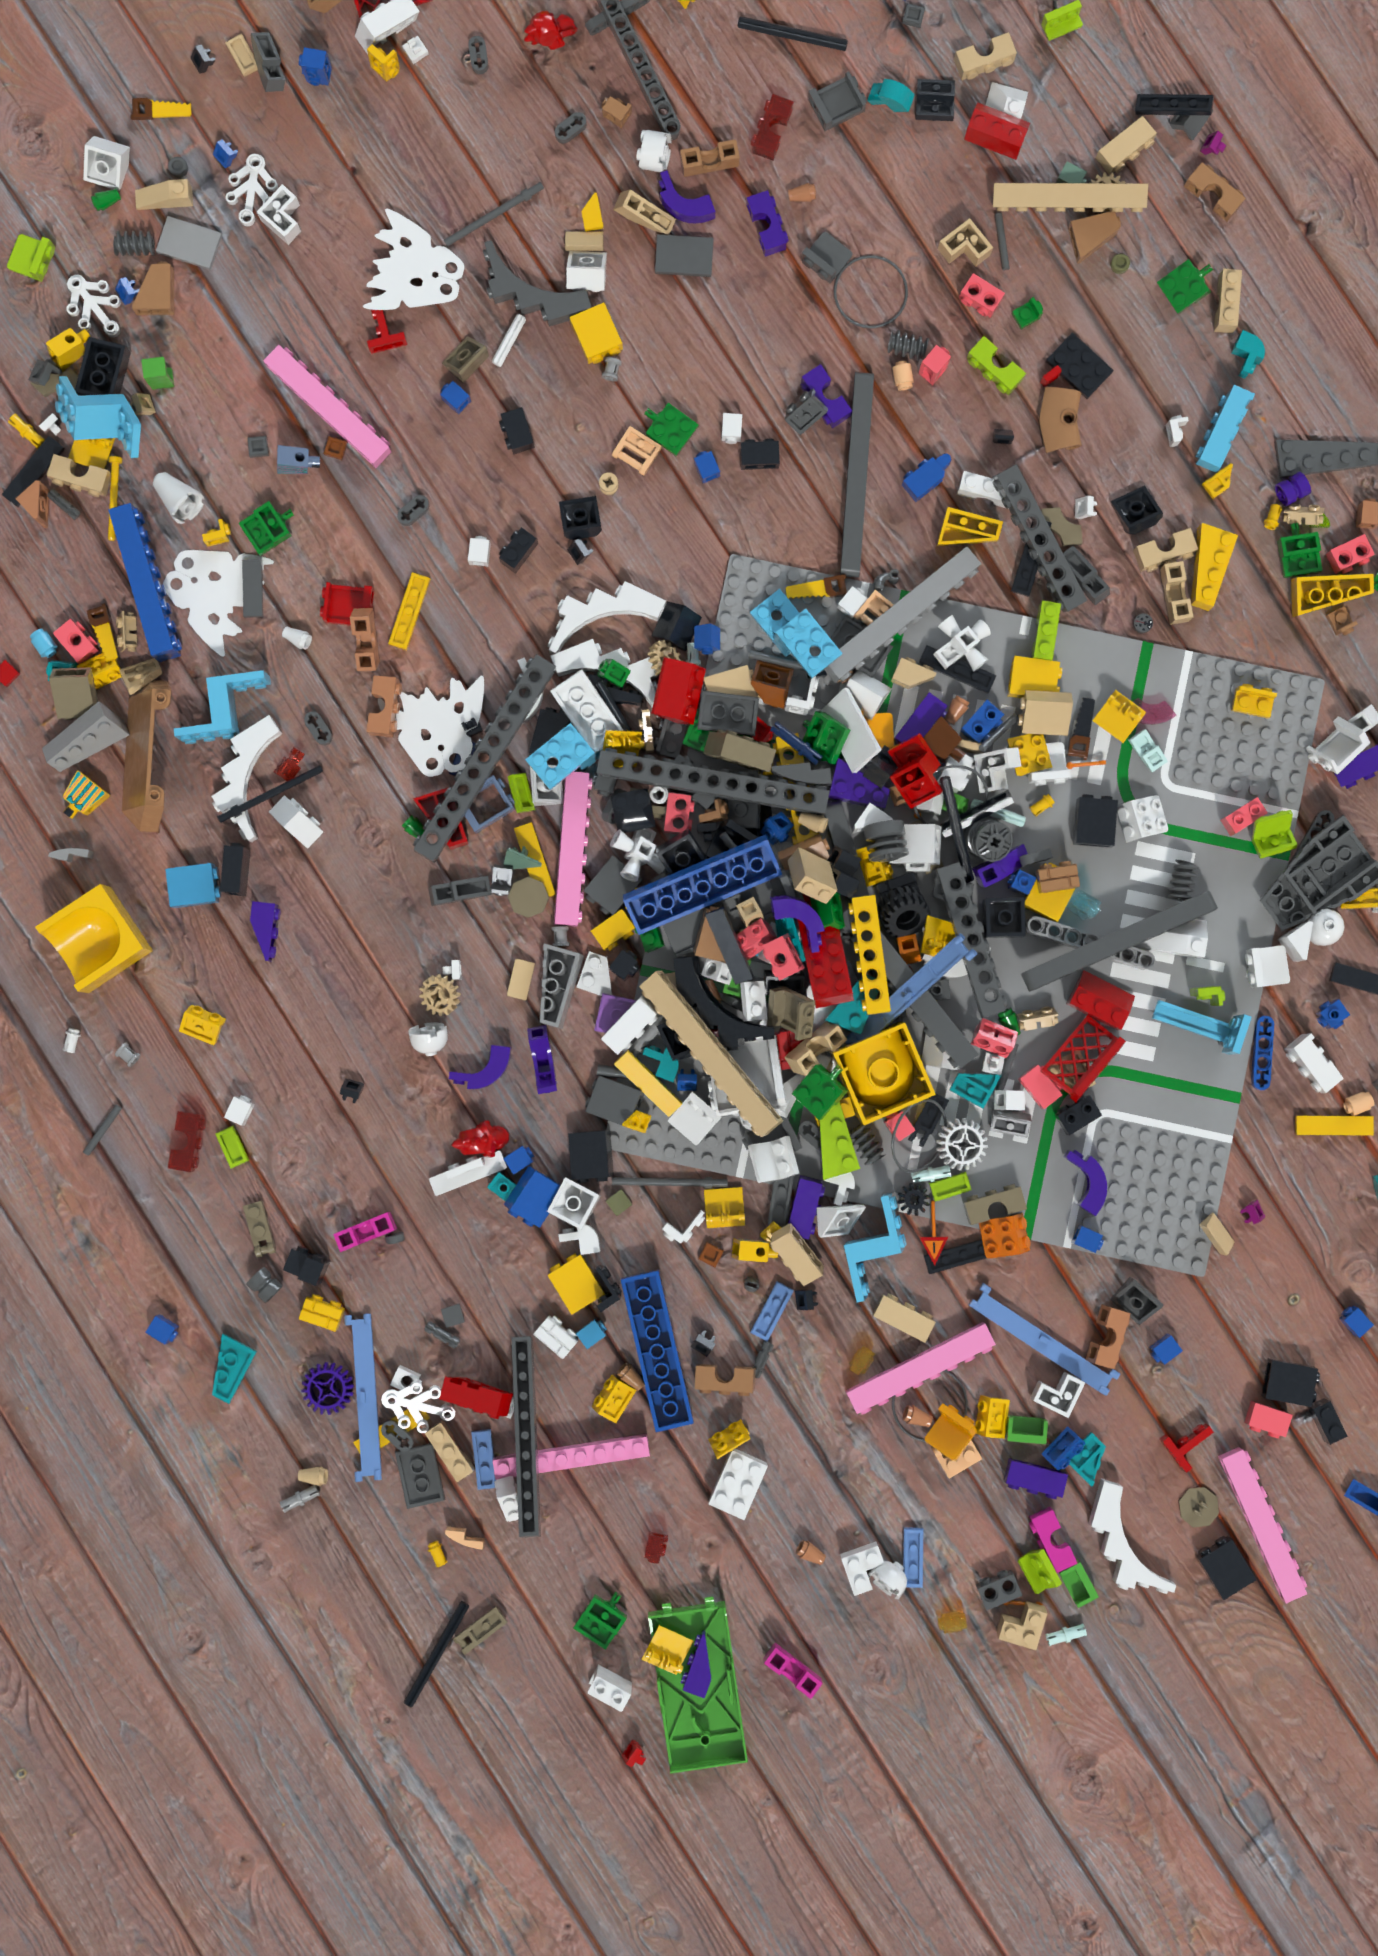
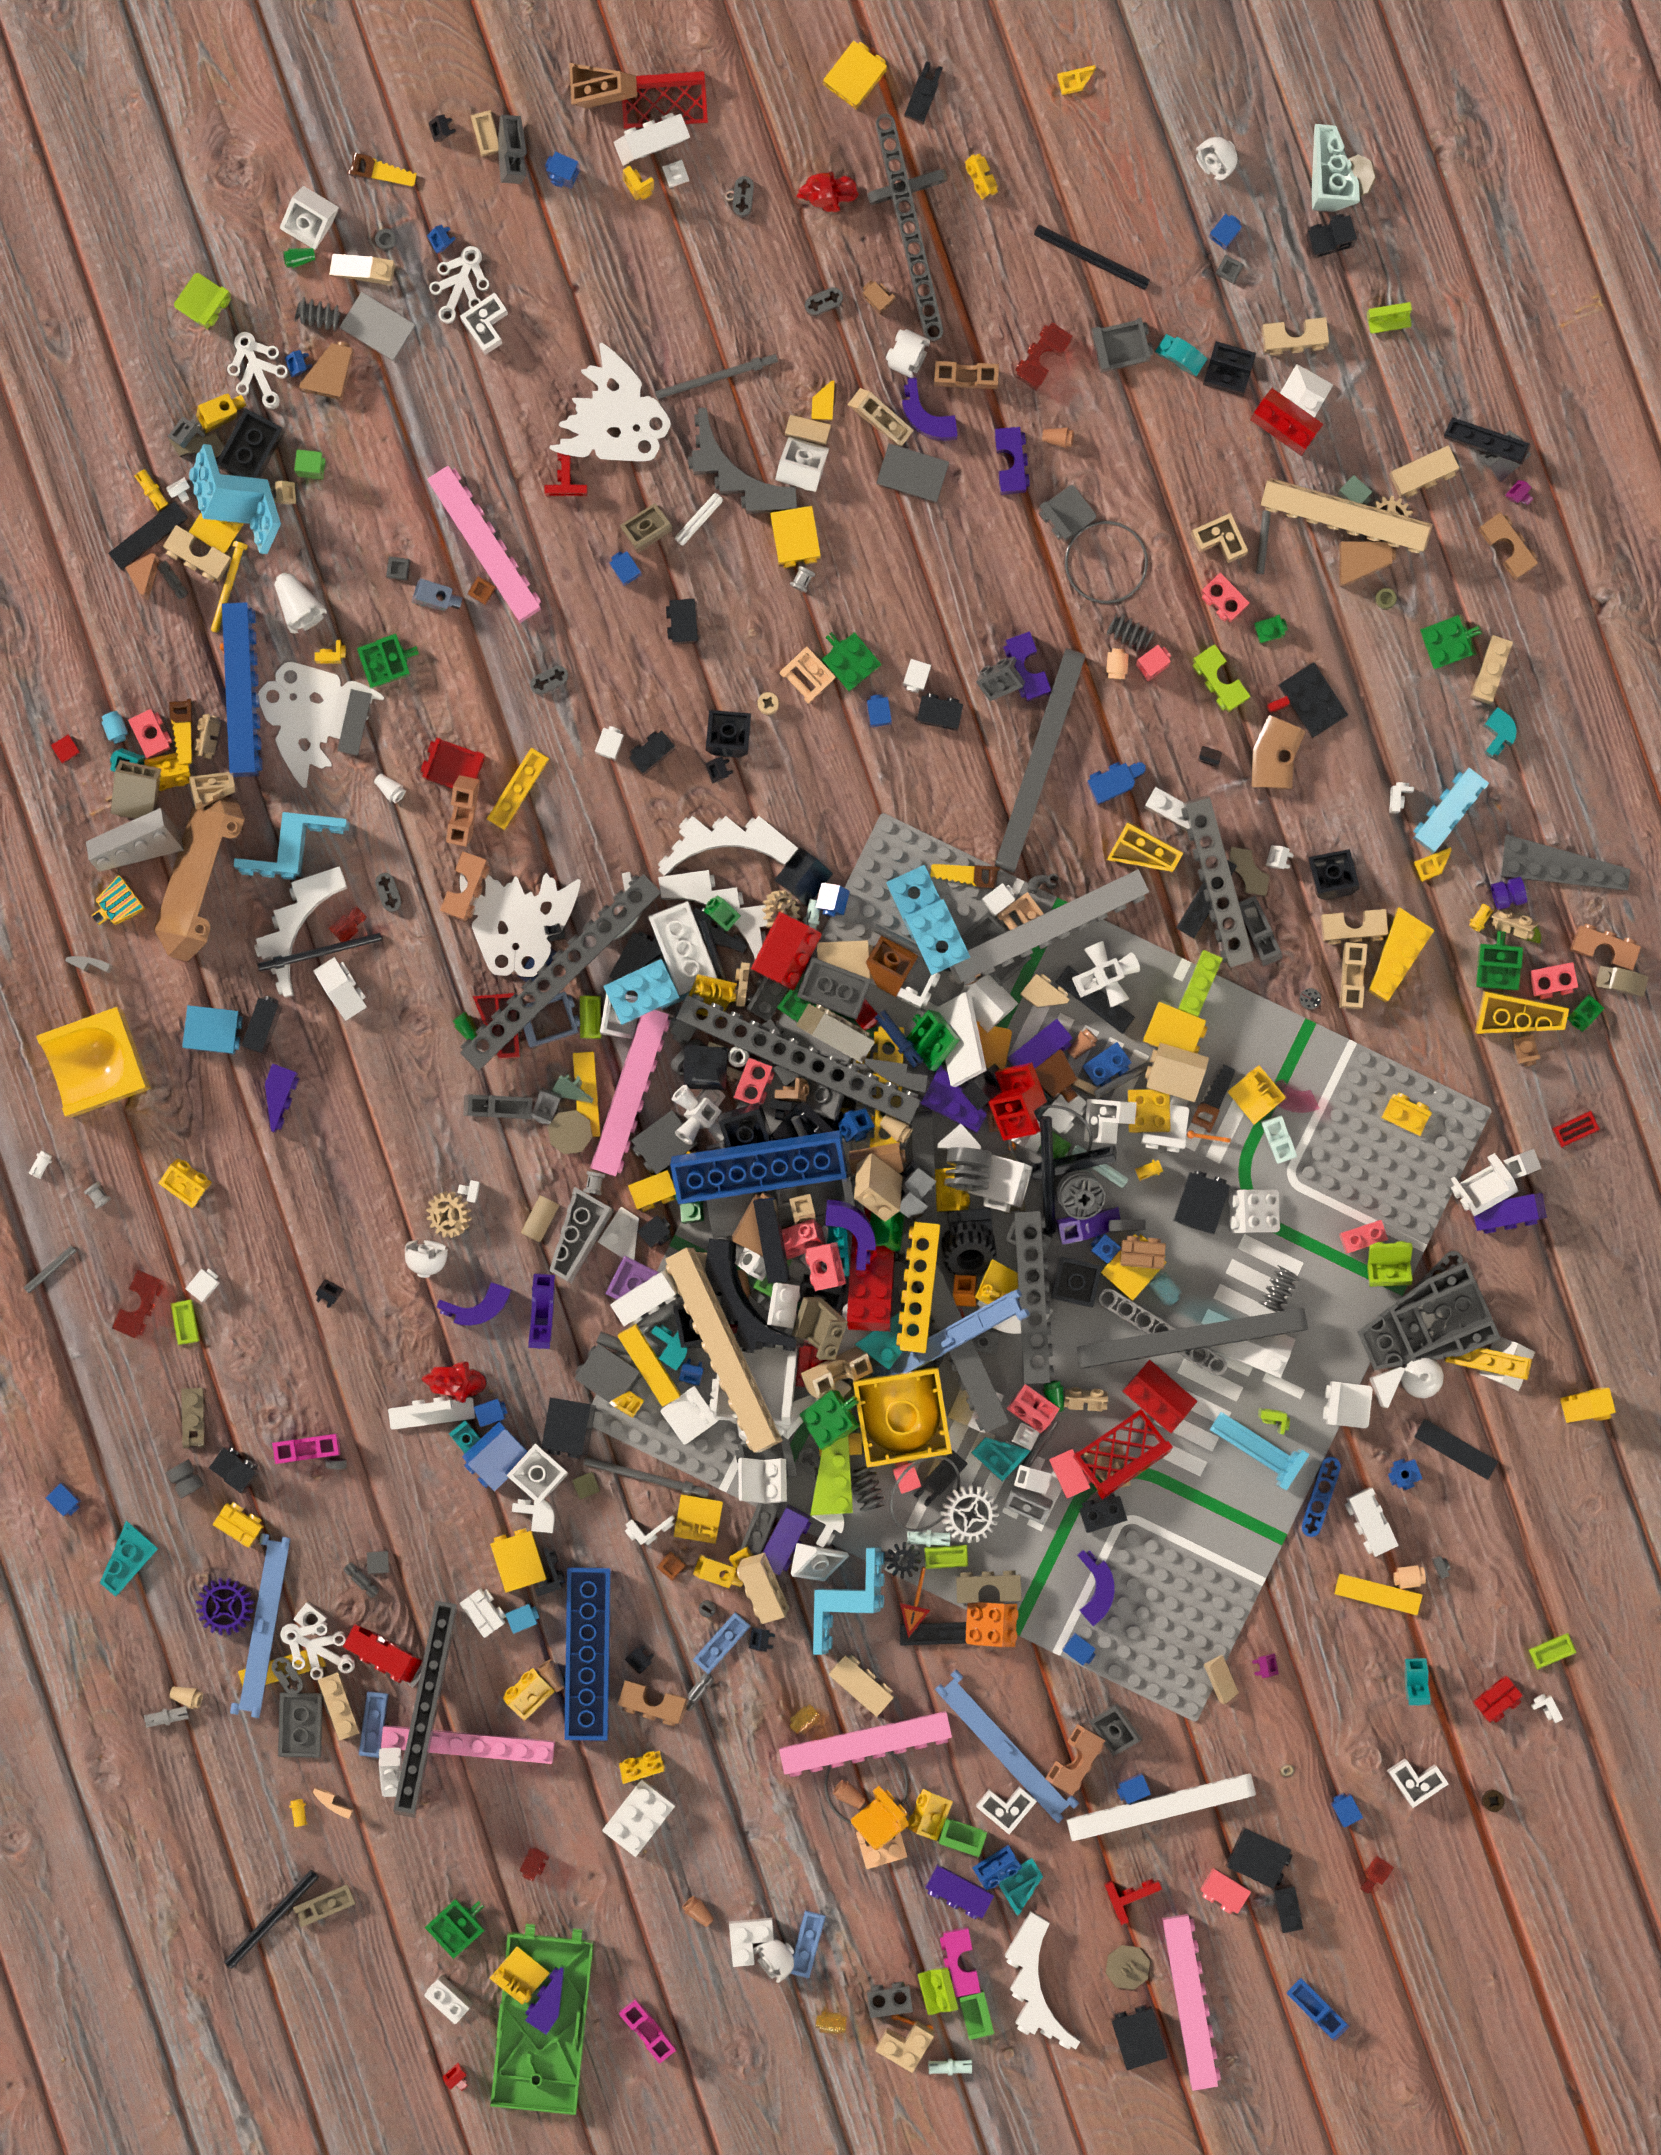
camera: 15 degrees right, 0 degrees up
(1193, 1359) = (1161, 1807): none -> white beam

